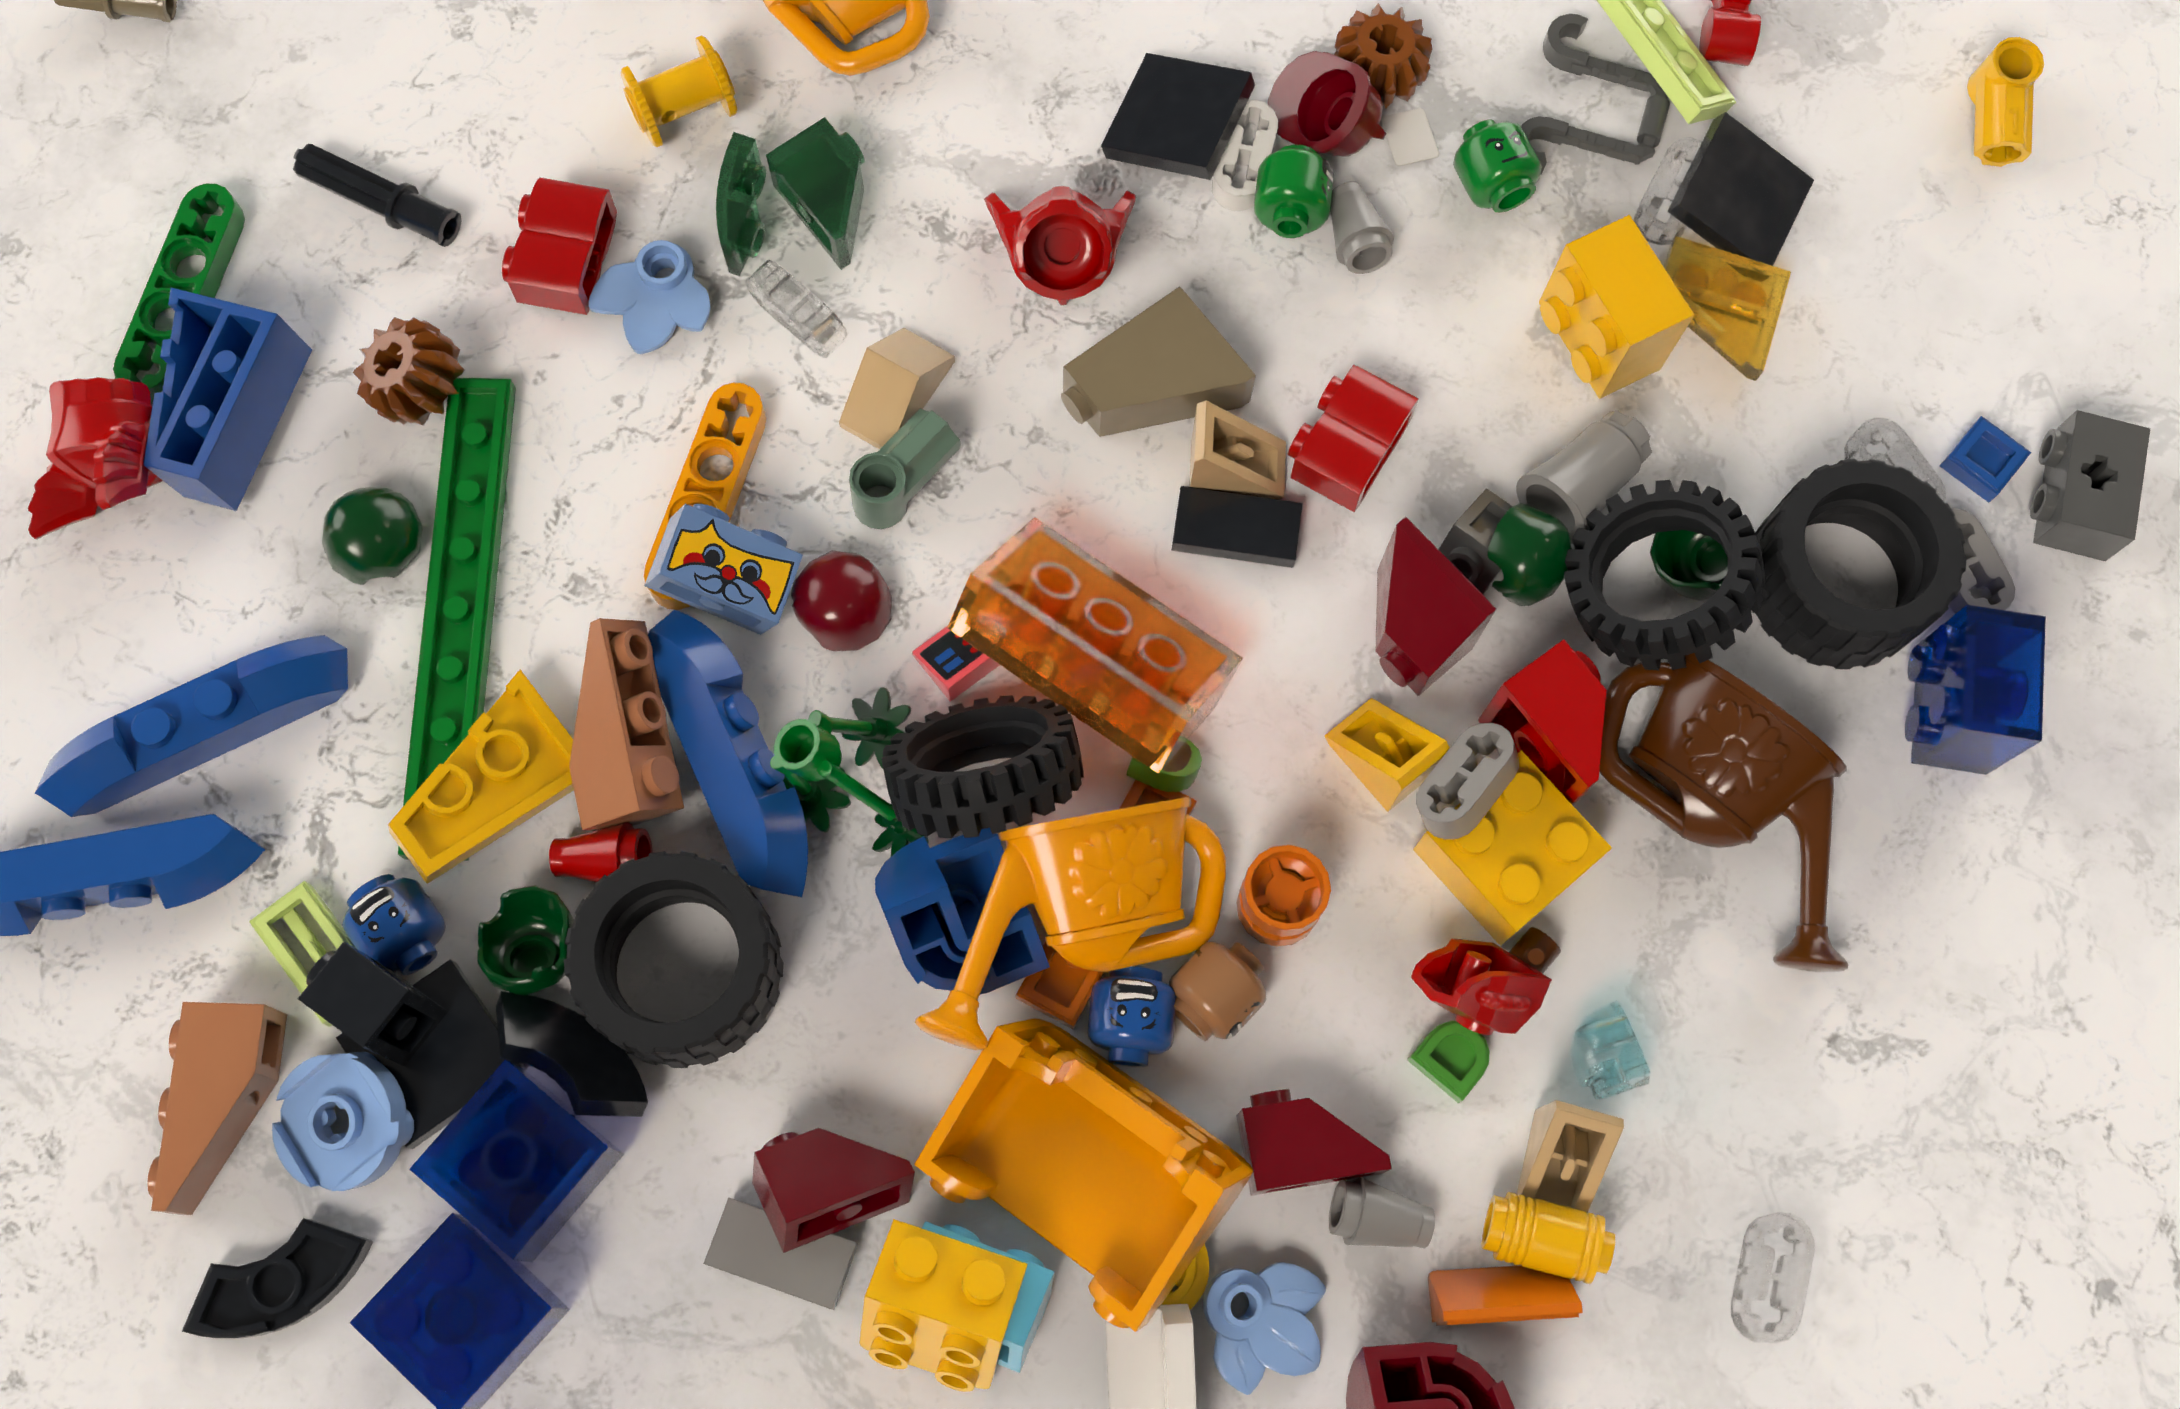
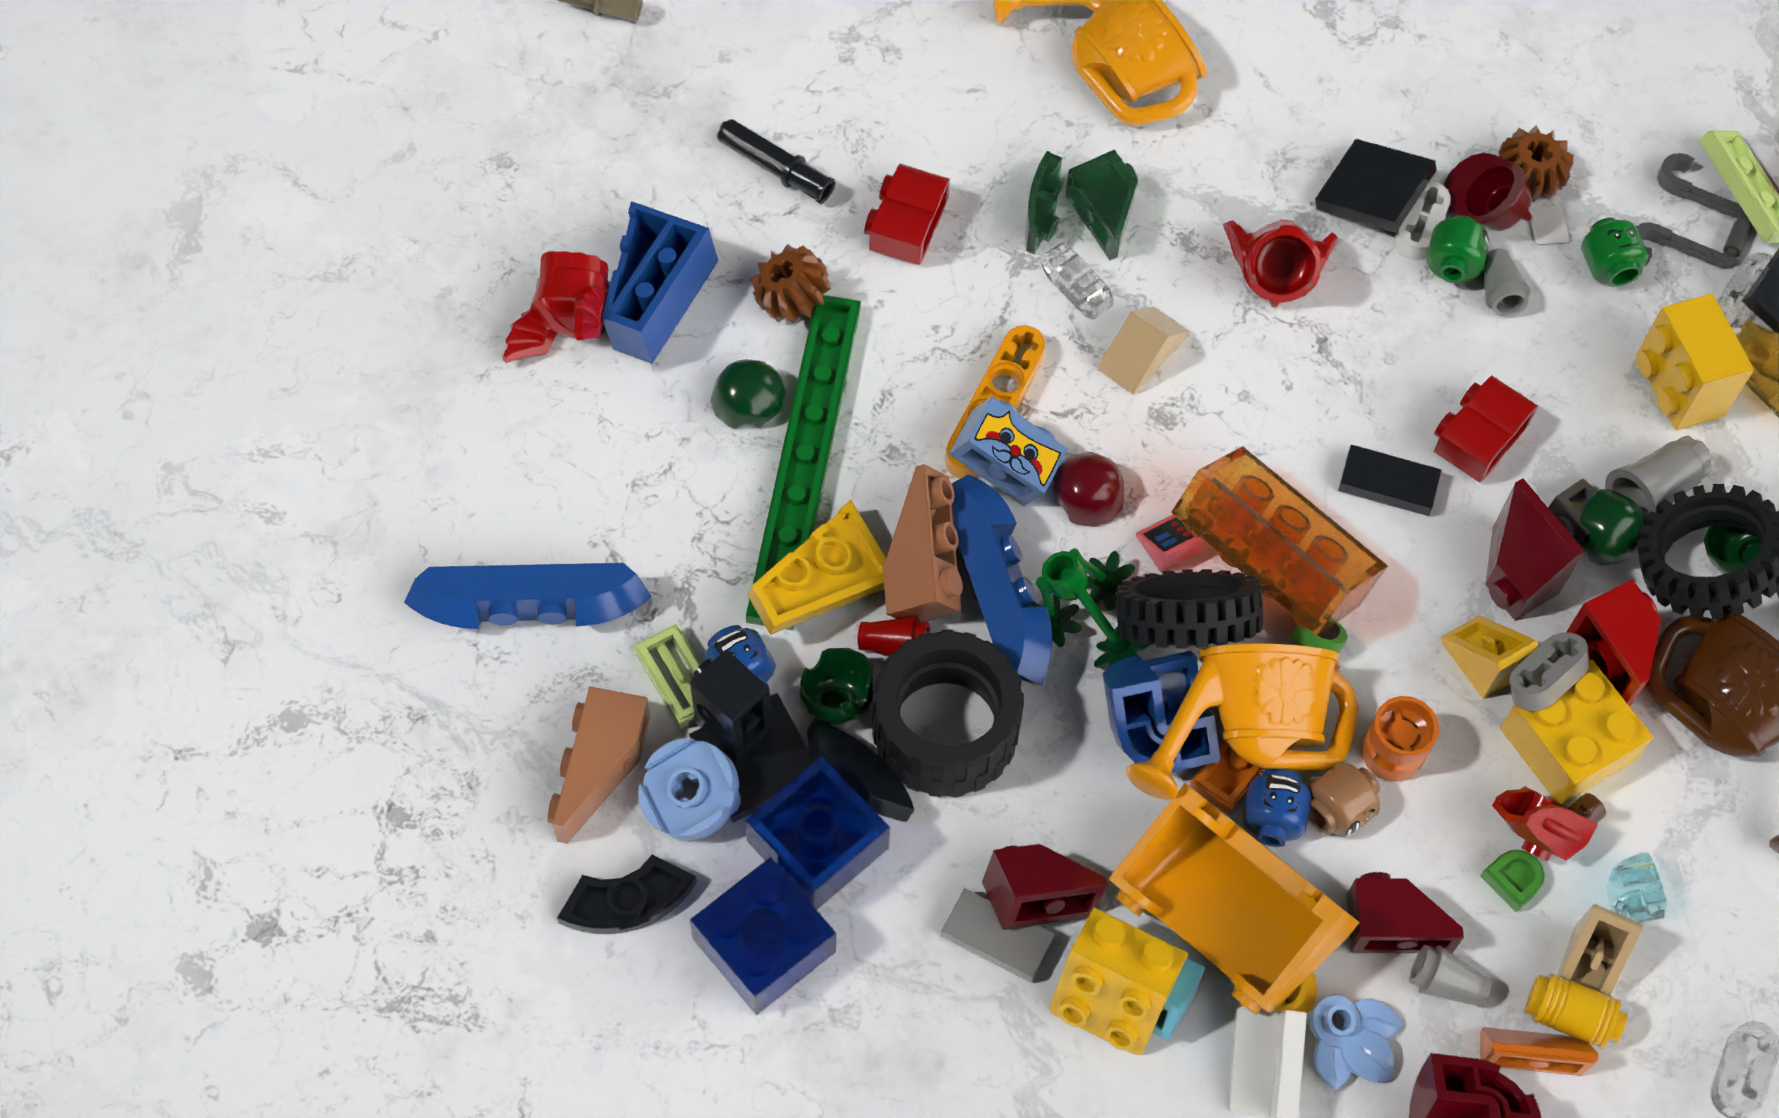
camera: 10 degrees right, 10 degrees down
(183, 240) = (617, 204): green beam -> none
(194, 724) = (609, 504): blue brick -> none
(652, 304) = (968, 263): light blue plate -> none
(679, 91) = (1006, 118): yellow hose -> none
(903, 465) = (1144, 402): sand green piece -> none
(1155, 371) = (1342, 361): dark tan slope -> none
(1235, 455) = (1393, 426): tan slope -> none

